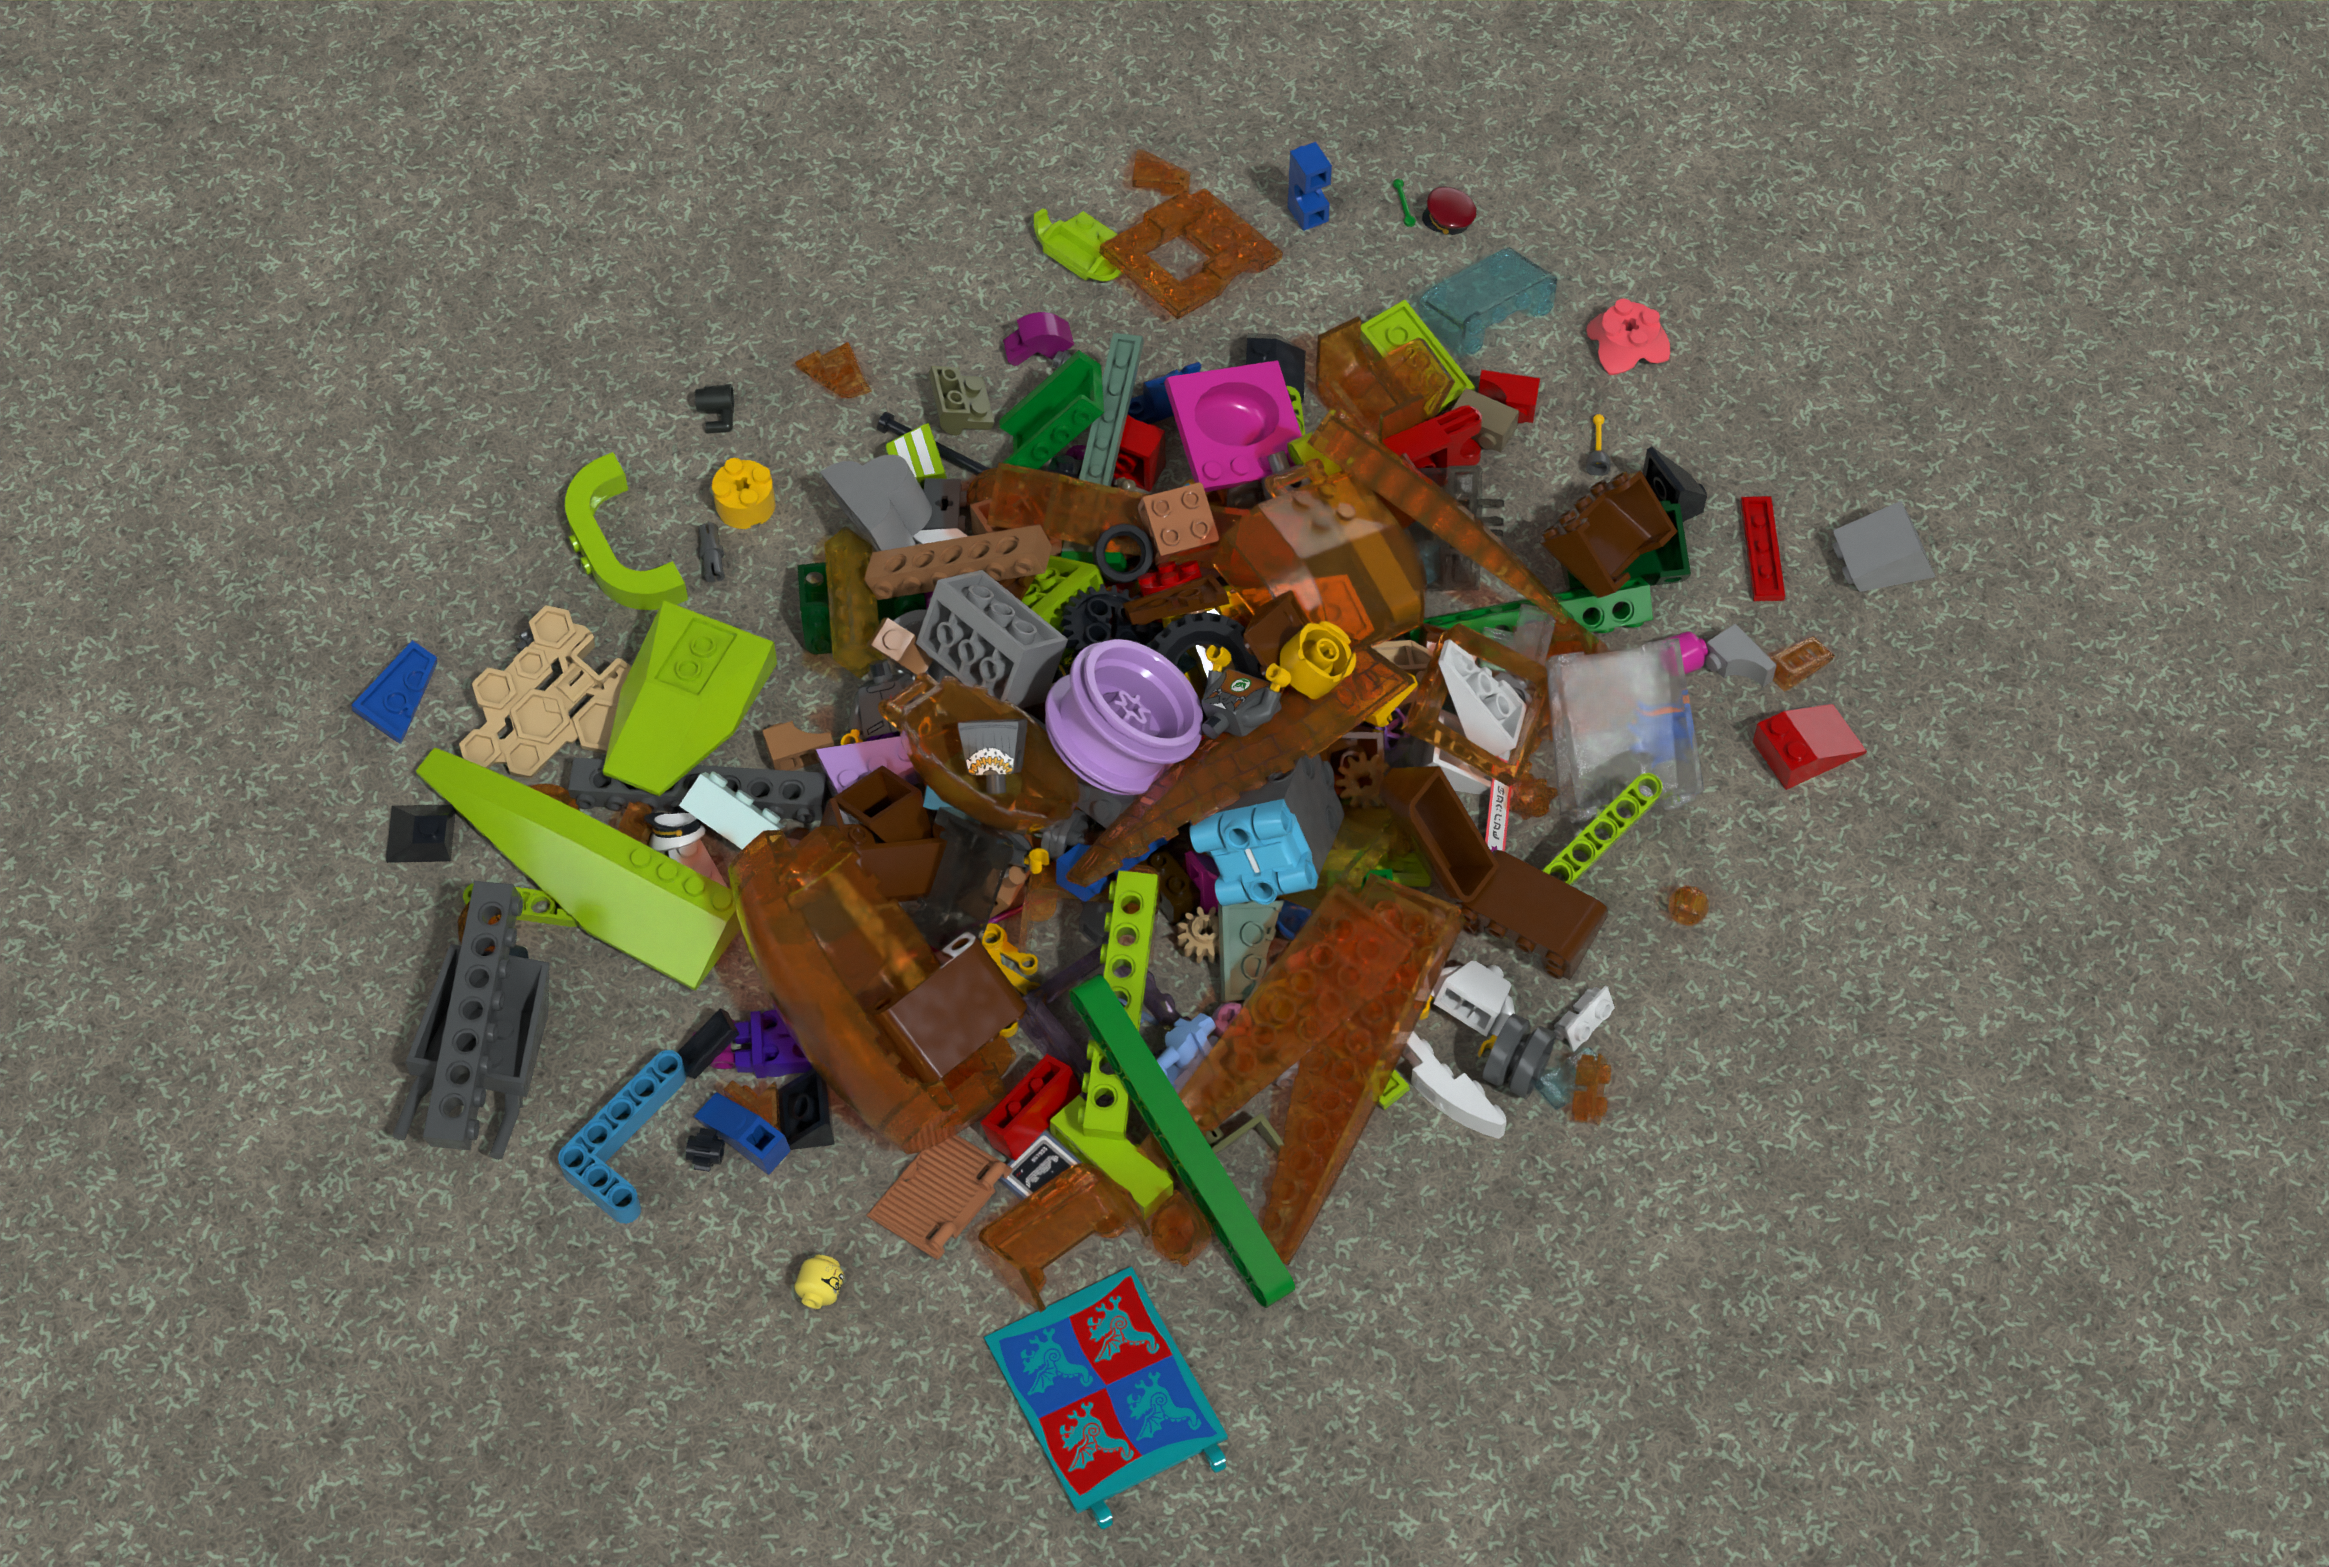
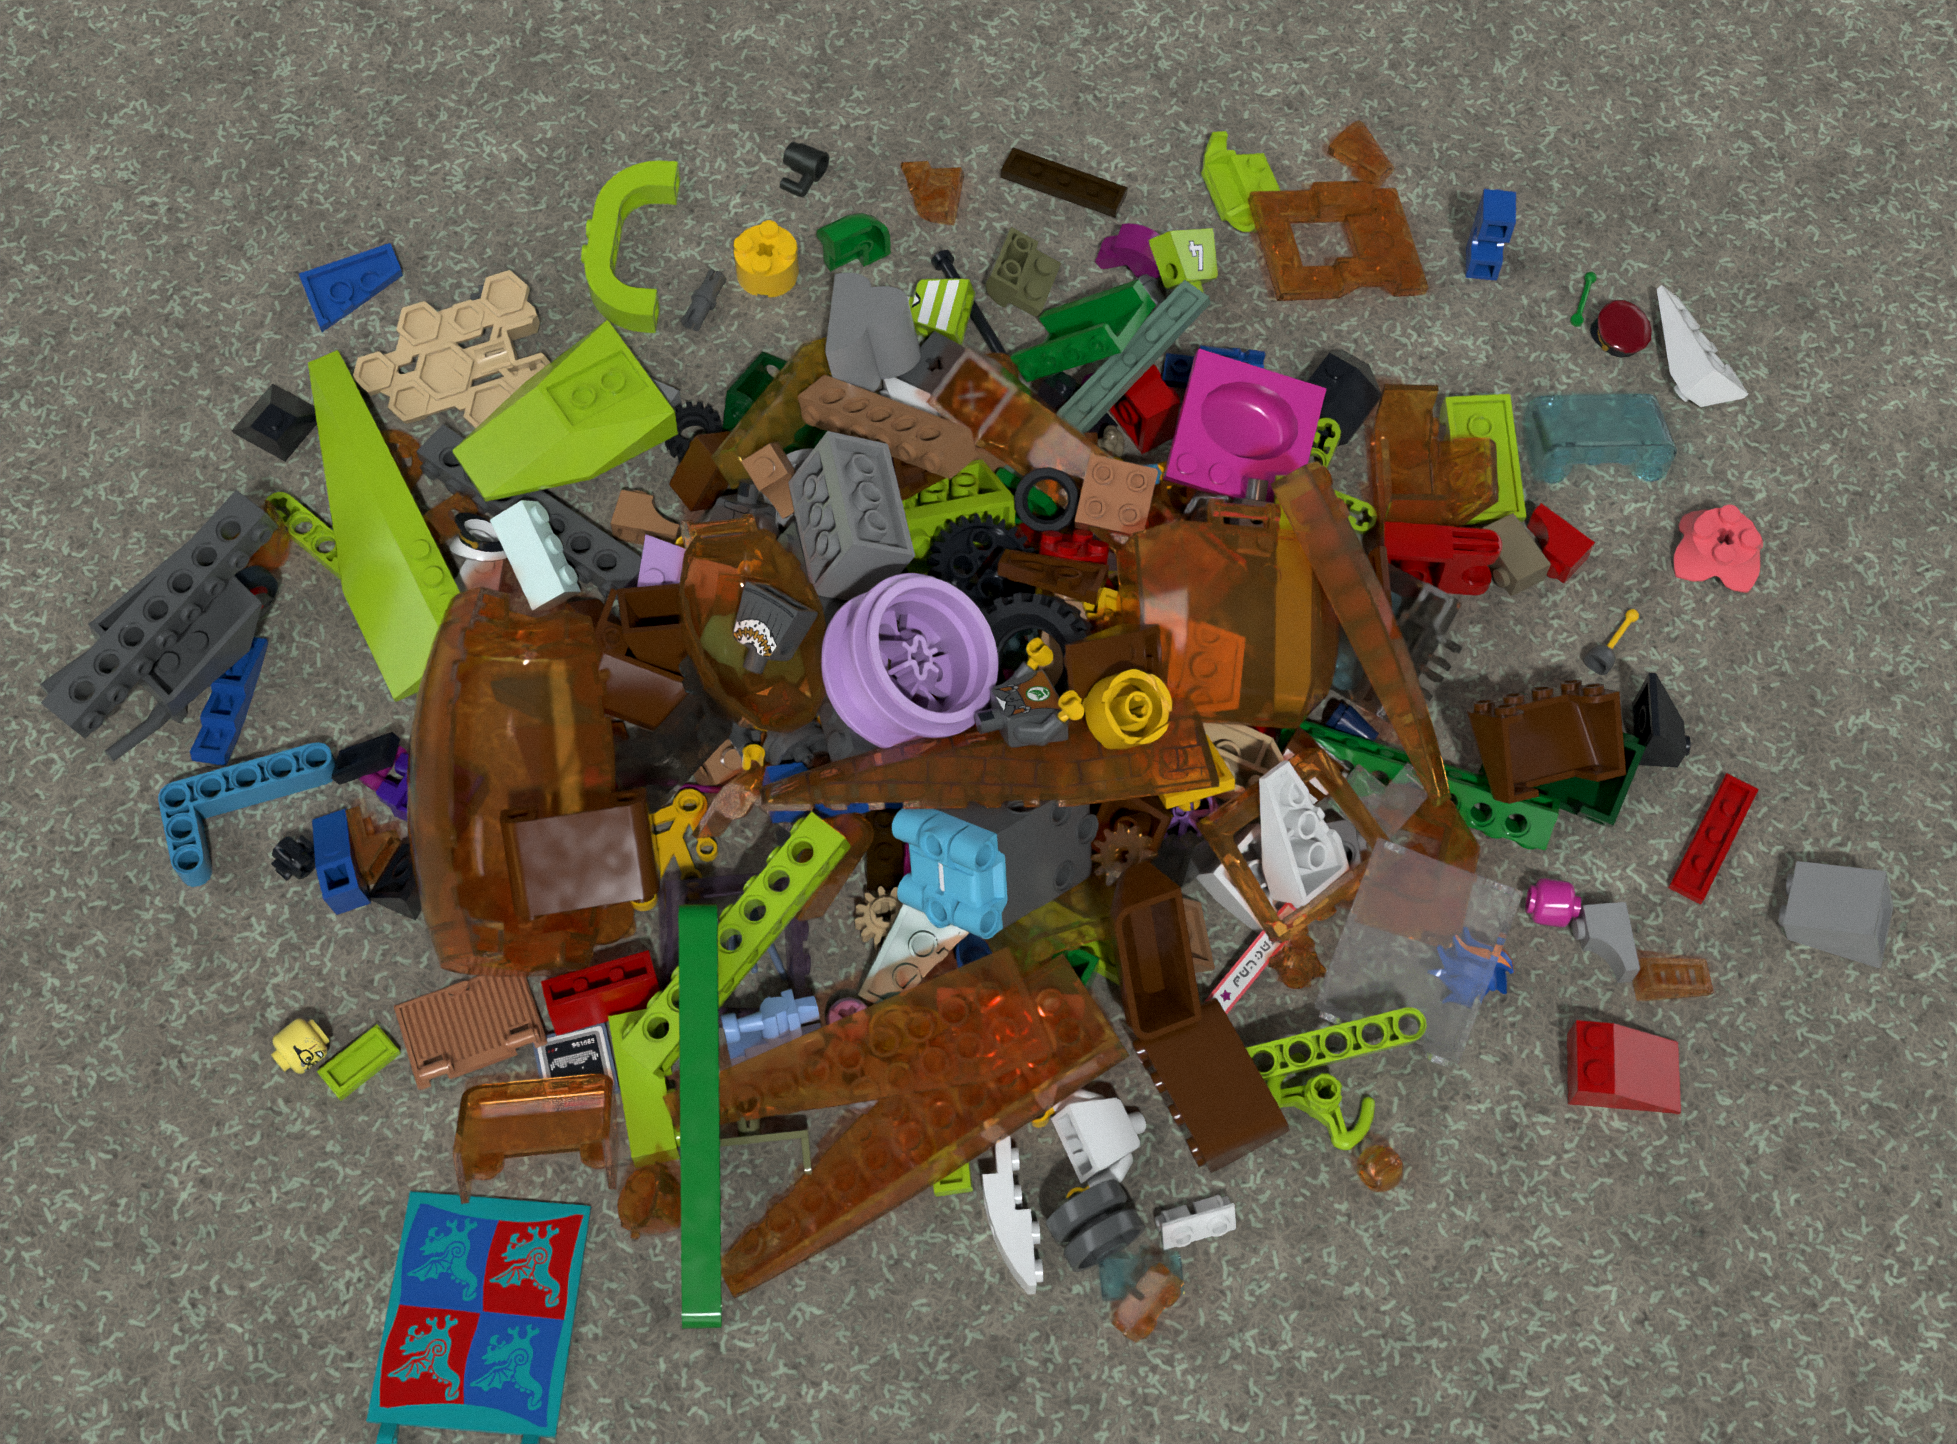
camera: 30 degrees right, 5 degrees up
(559, 1077) = (228, 707): none -> blue slope
(795, 669) = (692, 417): none -> black tyre
(806, 438) = (853, 238): none -> green brick
(820, 680) = (697, 477): none -> reddish brown brick
(871, 1270) = (358, 1062): none -> lime tile
(939, 312) = (1064, 182): none -> dark brown plate
(1085, 323) = (1185, 256): none -> lime torso
(1447, 603) = (1351, 722): none -> dark blue cone
(1518, 208) = (1693, 359): none -> white wedge
(1617, 883) = (1323, 1109): none -> lime piece

